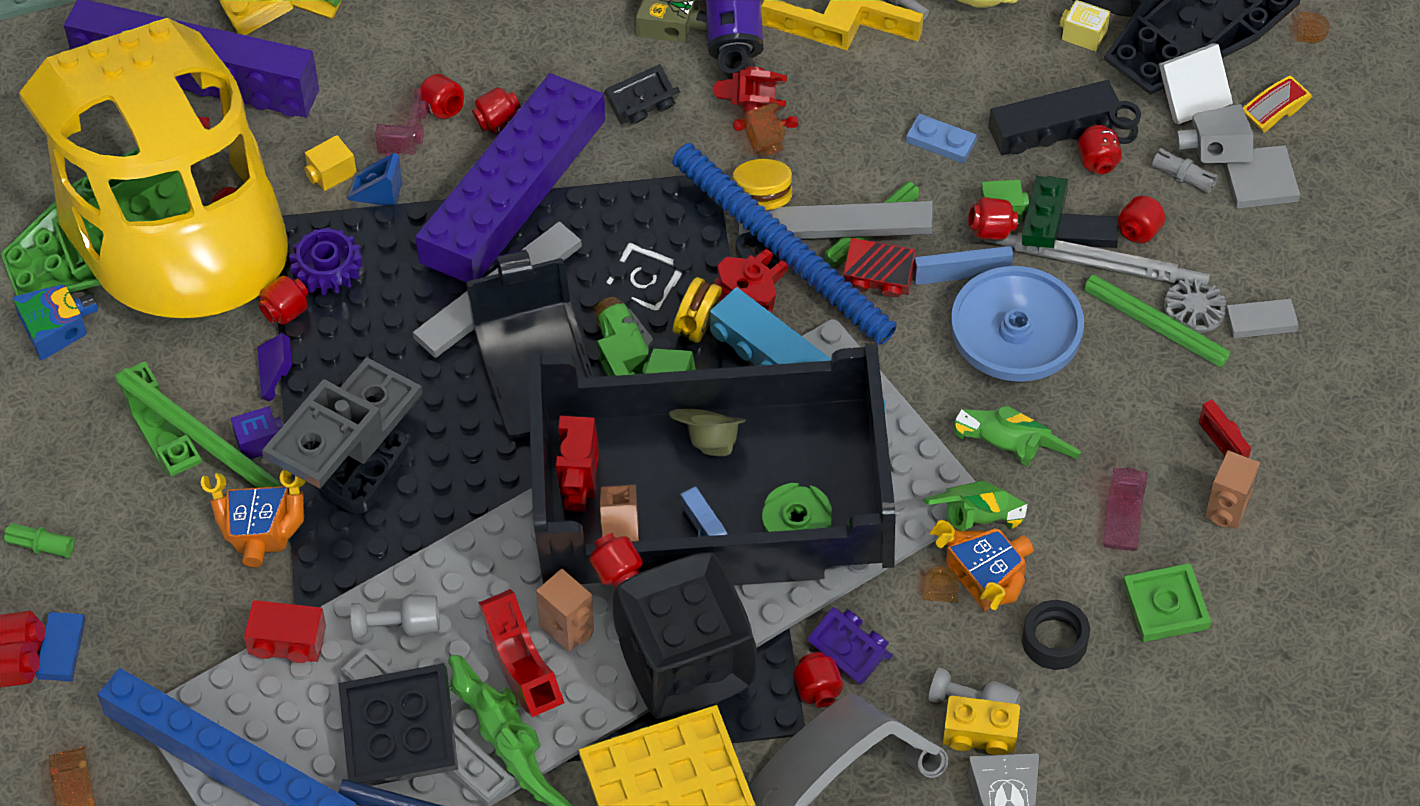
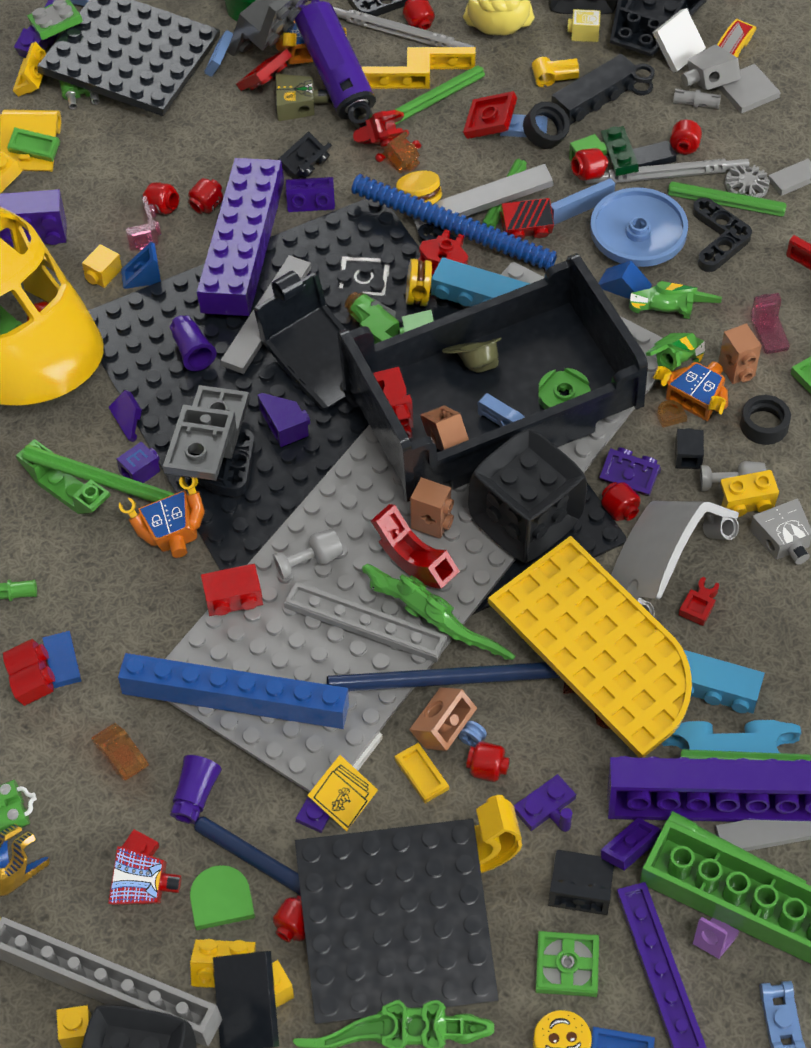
camera: 20 degrees left, 0 degrees up
(283, 300) = (115, 367): red head -> none
(326, 260) = (133, 330): dark purple gear -> none
(387, 304) = (194, 347): none -> dark purple plant
(398, 725) = (349, 626): black plate -> none
(453, 434) = (284, 418): none -> dark purple slope
(615, 559) = (462, 456): red head -> none
(627, 147) = (310, 194): none -> dark purple bracket
(851, 61) = (441, 92): none -> bright green axle
(900, 111) = (490, 115): none -> red plate
(937, 640) = (689, 448): none -> black brick
(967, 388) = (624, 280): none -> blue slope
(981, 131) = (555, 114): none -> black tyre
(1007, 74) = (549, 71): none -> yellow piece
(1059, 537) = (739, 354): none -> nougat brick
(1099, 149) = (635, 100): red head -> none
(1131, 373) = (727, 234): none -> black beam

